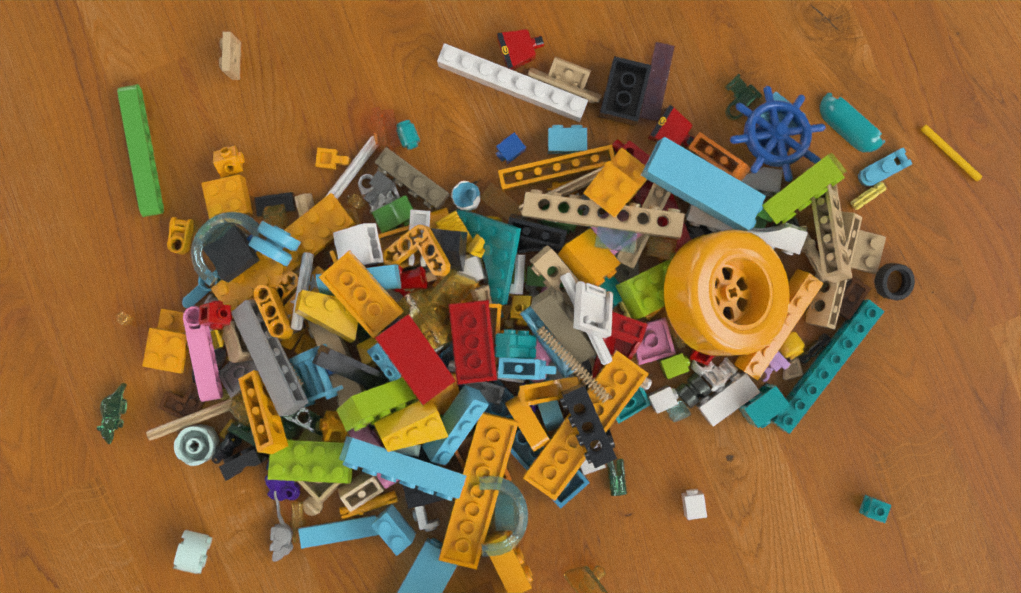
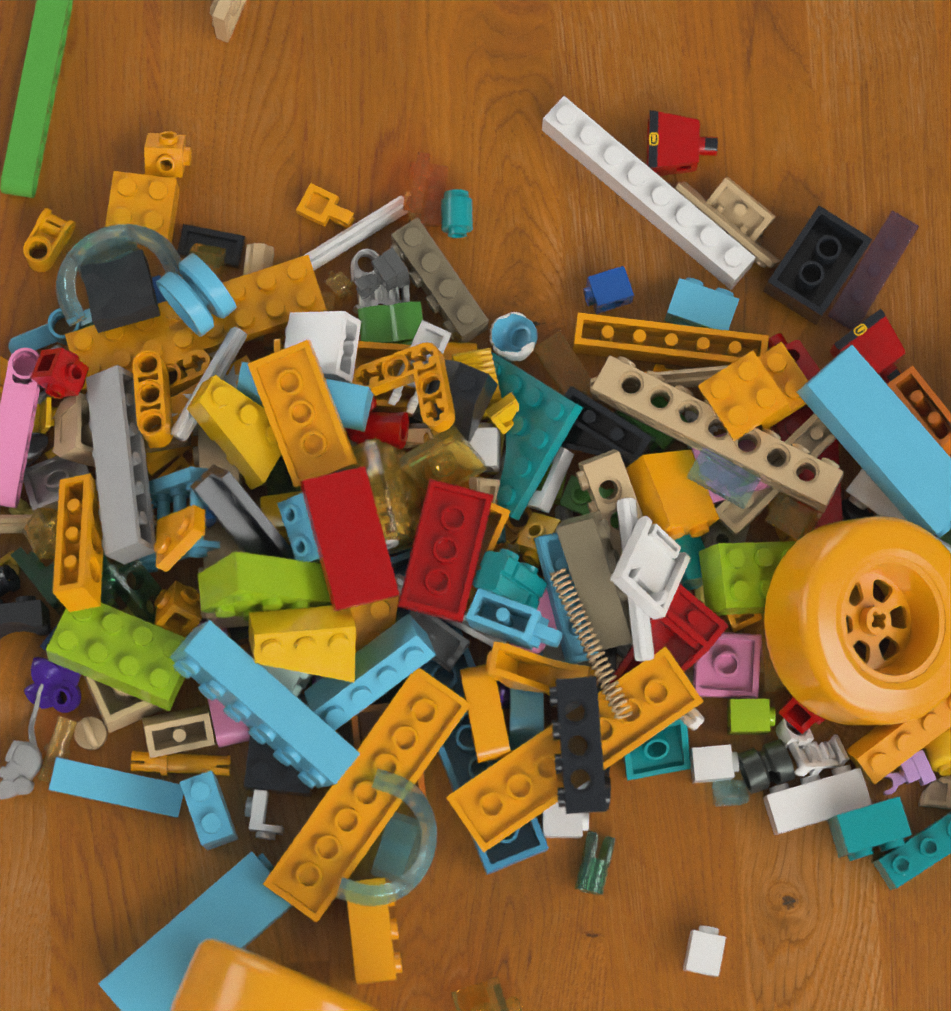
camera: 15 degrees right, 10 degrees down
(316, 391) = (177, 535): none -> light orange wing

